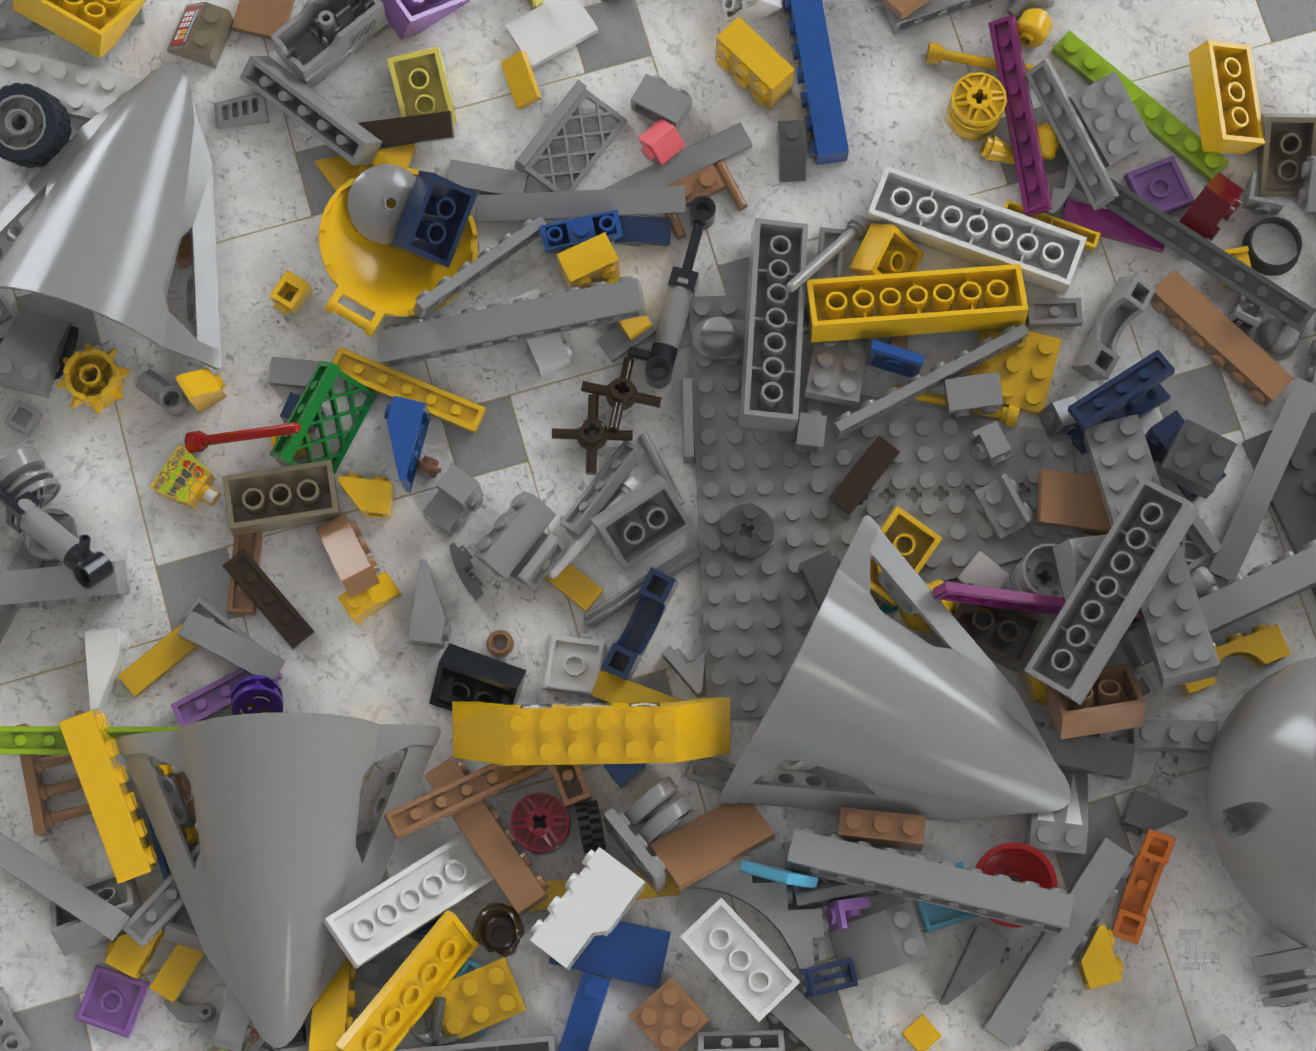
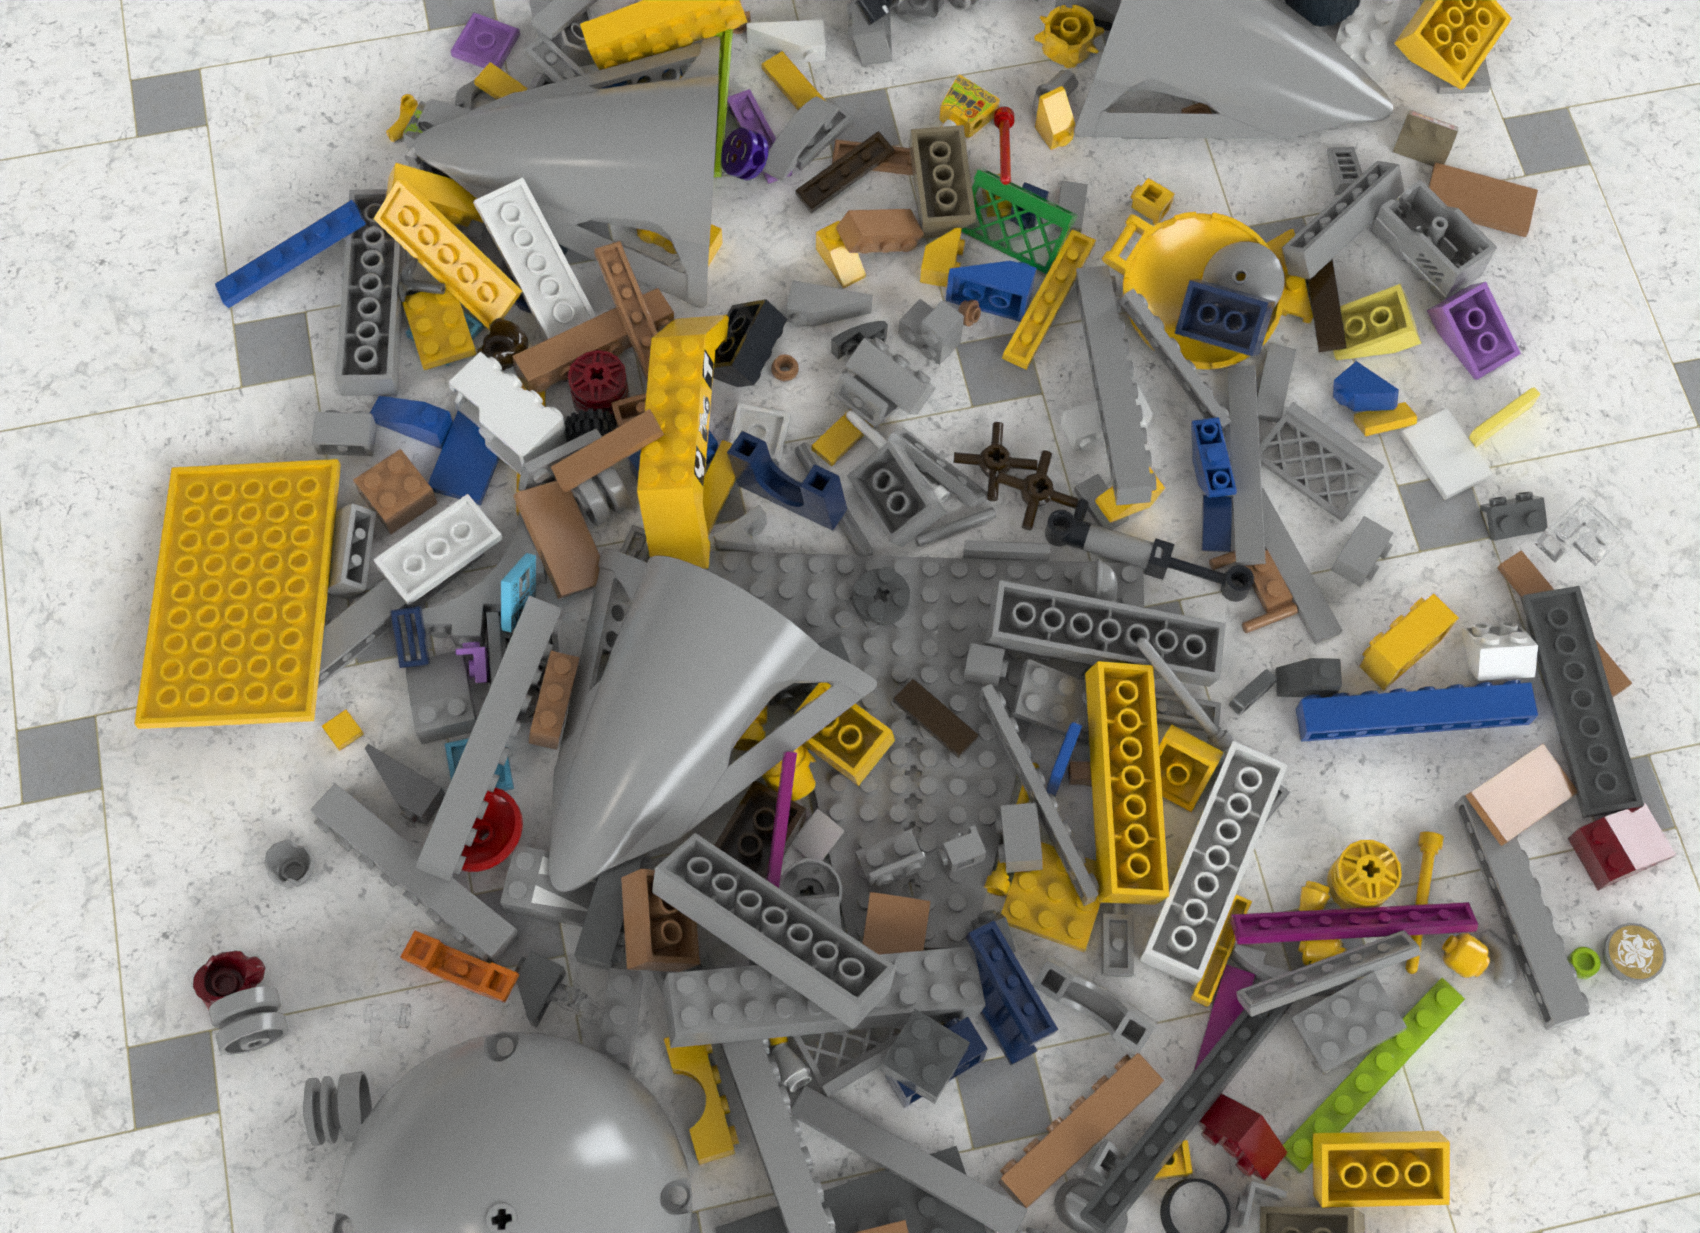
camera: 90 degrees right, 10 degrees down
(129, 956) = (513, 54): yellow slope -> none
(495, 97) = (1364, 390): none -> blue slope
(588, 262) = (1177, 462): yellow brick -> none
(636, 795) = (607, 450): none -> medium nougat tile
(661, 142) = (1316, 545): coral brick -> none
(808, 199) = (1253, 692): none -> dark grey beam
(1097, 960) = (387, 913): yellow slope -> none
(1161, 185) = (1270, 1084): medium lavender tile -> none

